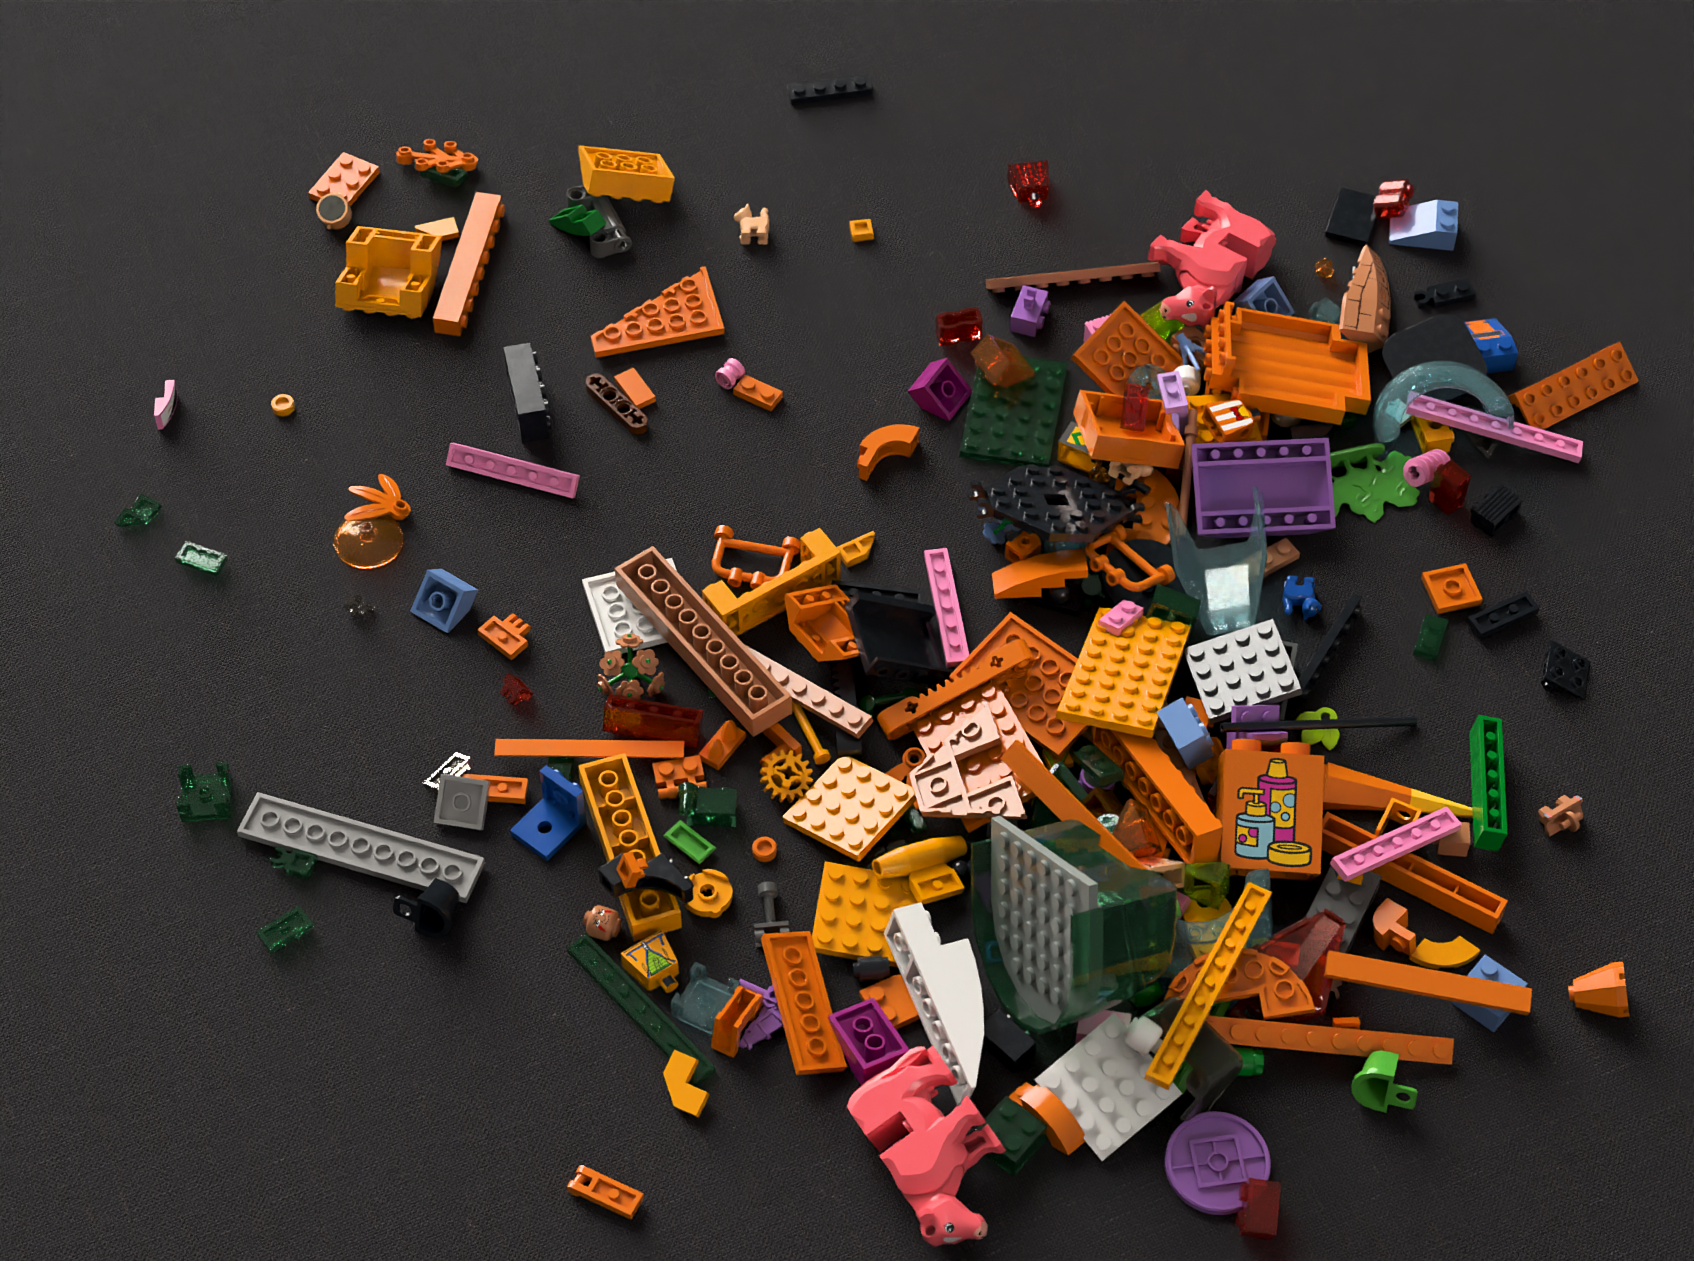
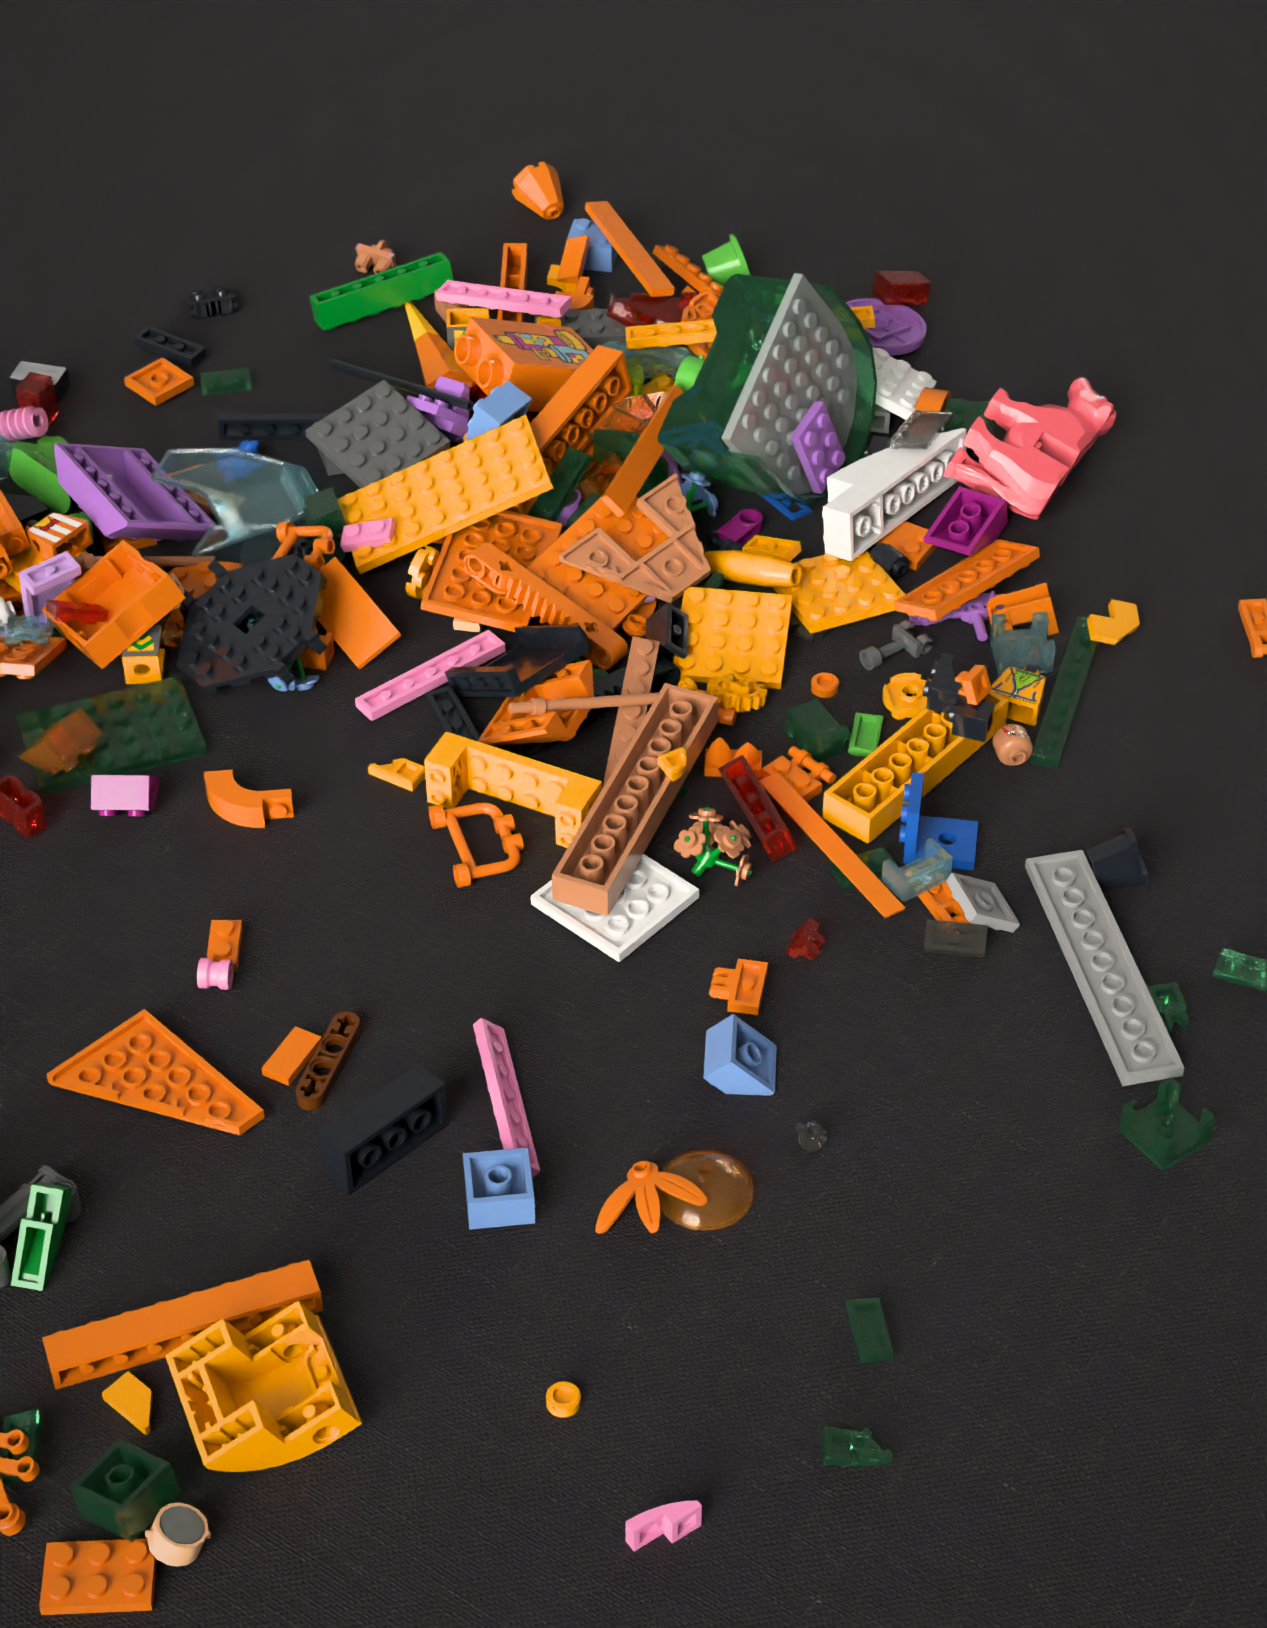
camera: 120 degrees left, 10 degrees down
(374, 196) = (124, 1490): none -> clear green brick
(436, 426) = (499, 1188): none -> medium blue slope
(515, 773) = (919, 874): none -> clear light blue panel
(700, 656) = (673, 763): none -> light orange tile
(816, 606) = (539, 706): none -> nougat bar
(872, 755) = (670, 628): none -> black slope
(995, 1060) = (919, 430): none -> clear smoke windscreen
(1014, 956) = (818, 446): none -> medium lavender plate
(1053, 630) = (421, 569): none -> light orange plate
(1456, 952) = (574, 259): none -> orange slope

